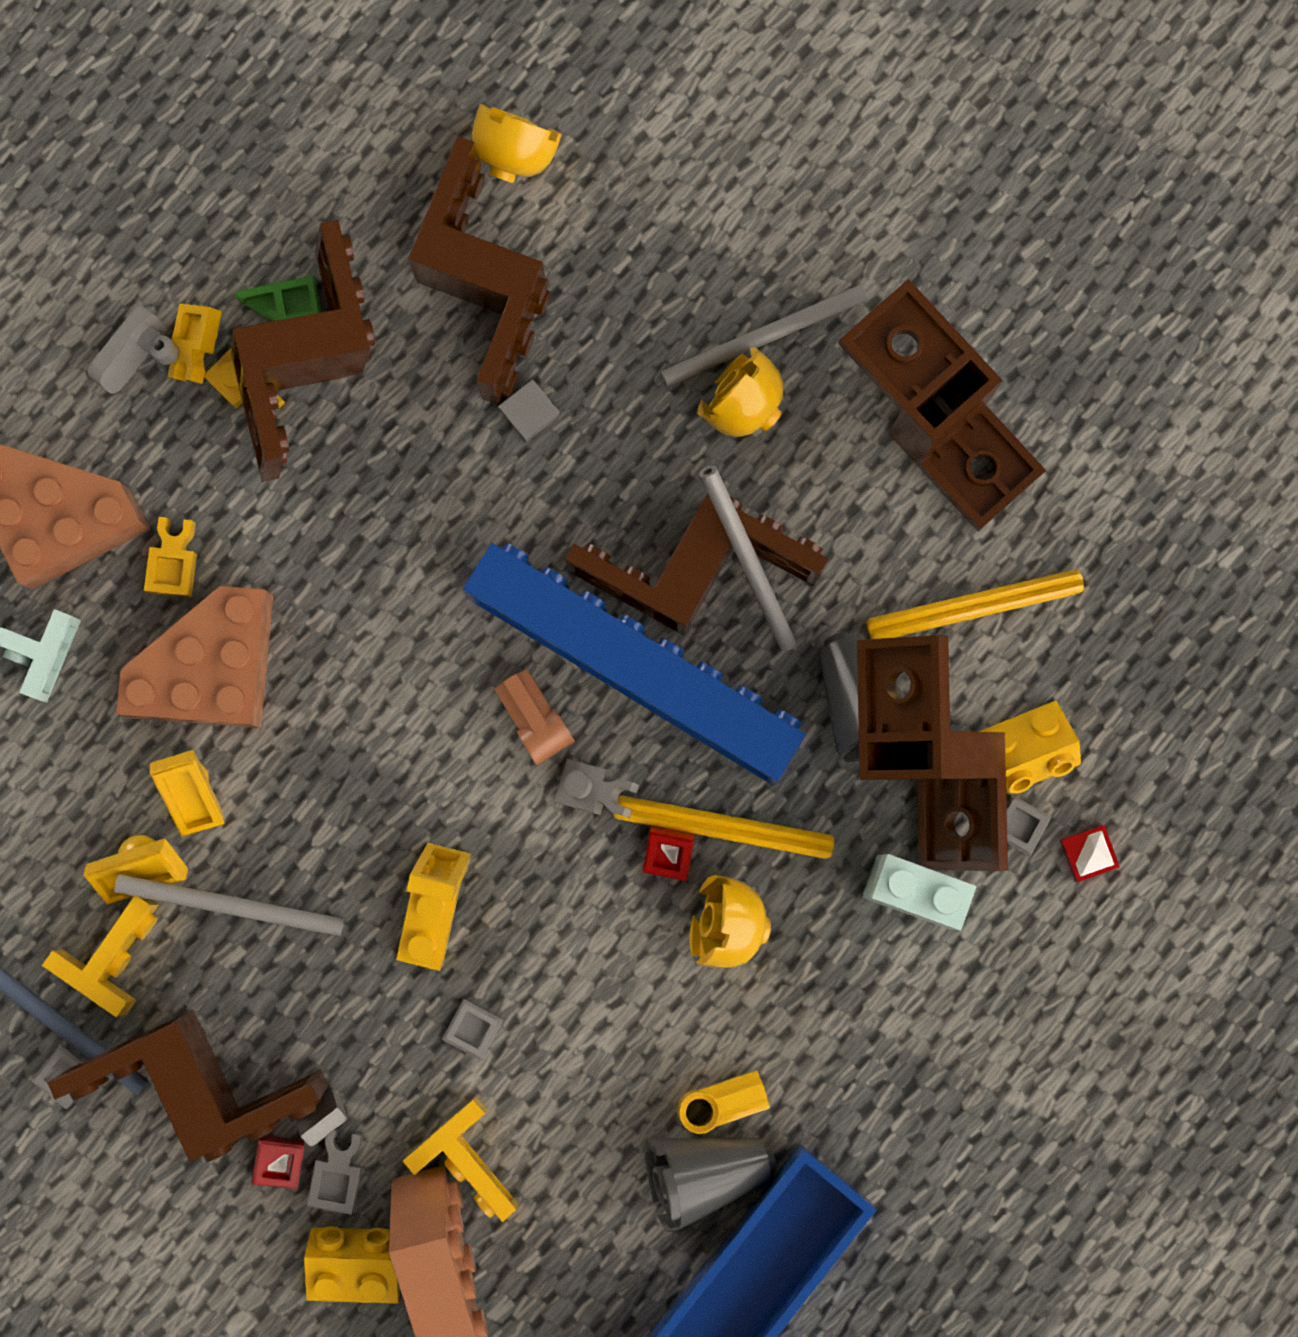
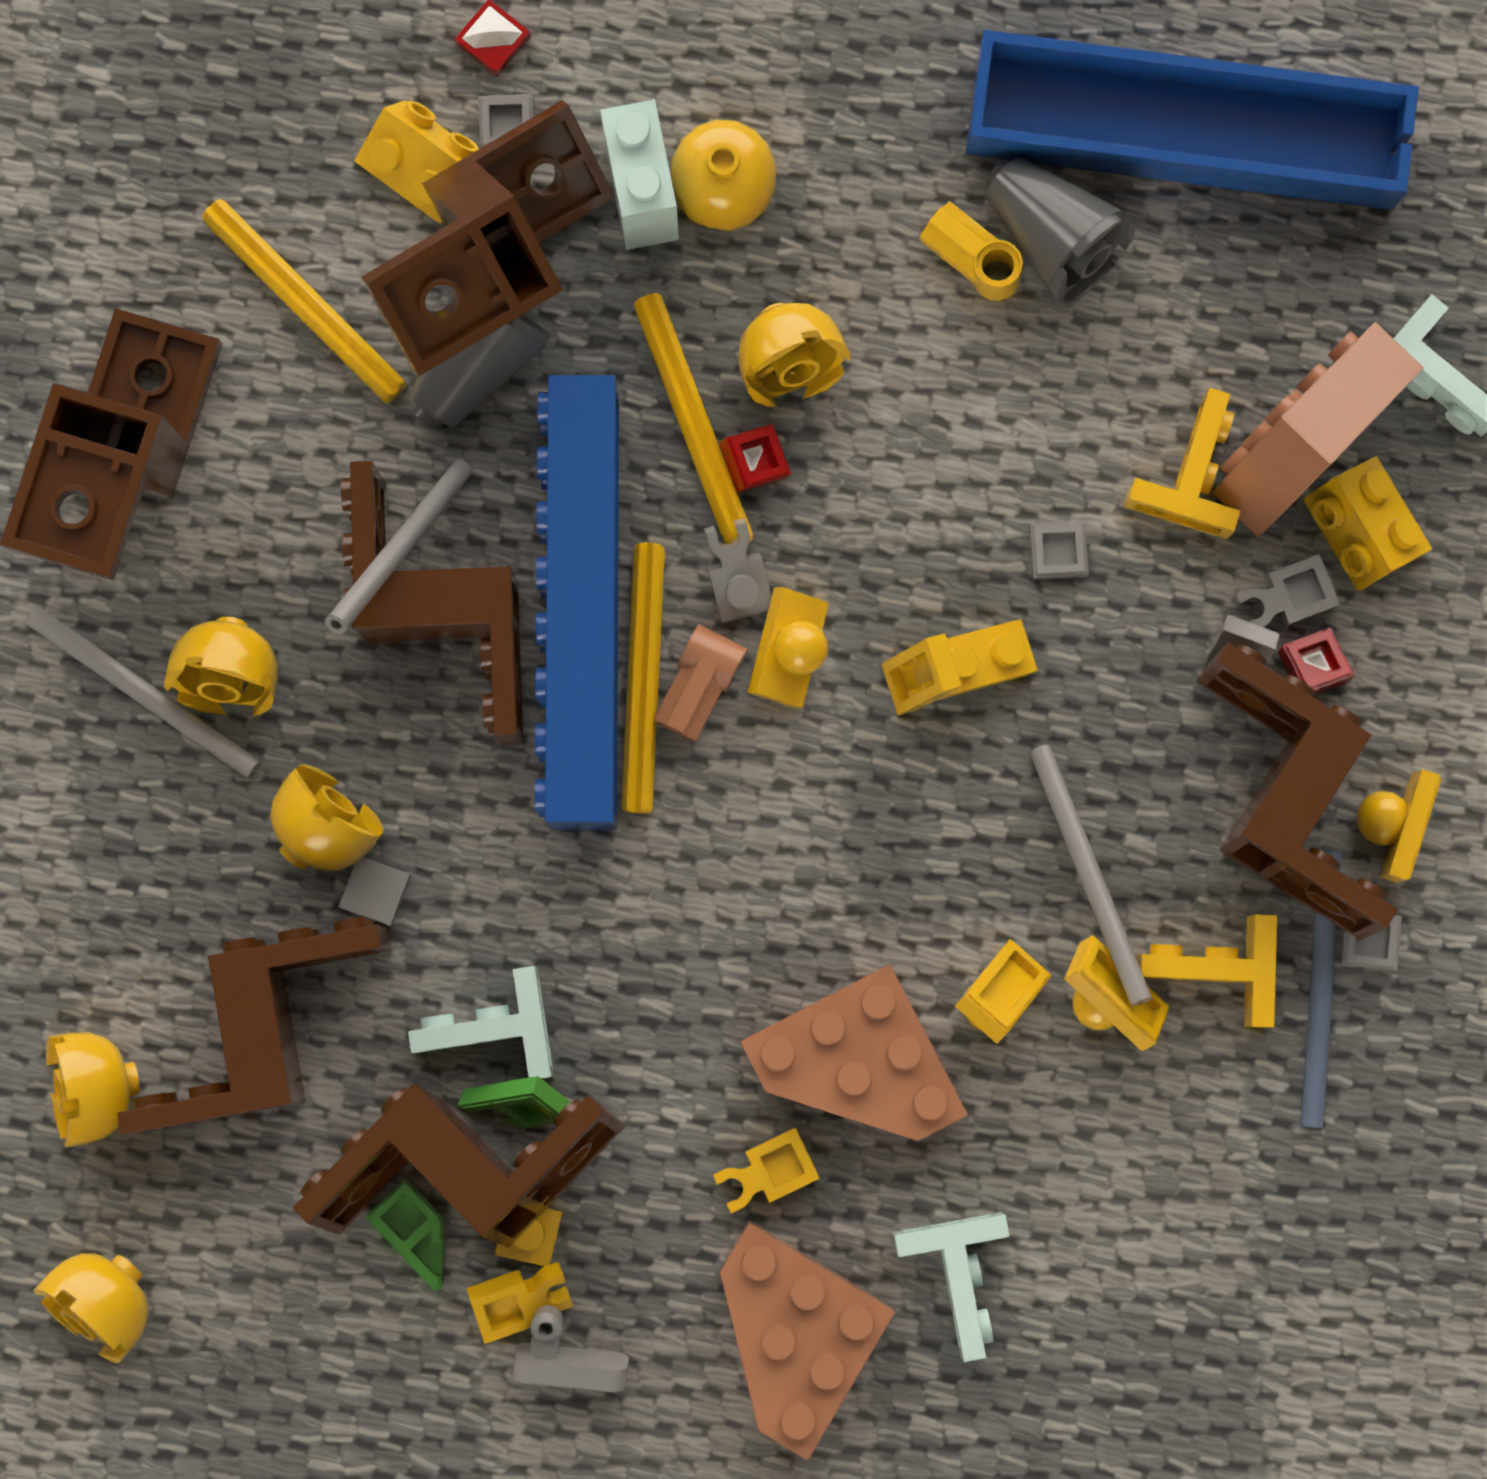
camera: 125 degrees left, 0 degrees up
(127, 1149) = (1399, 822): none -> yellow tile
(323, 420) = (525, 1101): none -> bright green tile
(366, 68) = (98, 1301): none -> yellow cylinder
(384, 434) = (496, 1025): none -> light aqua bracket
(519, 795) = (789, 647): none -> yellow tile
(563, 681) = (643, 678): none -> yellow axle
(595, 397) = (316, 824): none -> yellow cylinder
(888, 957) = (723, 175): none -> yellow cylinder

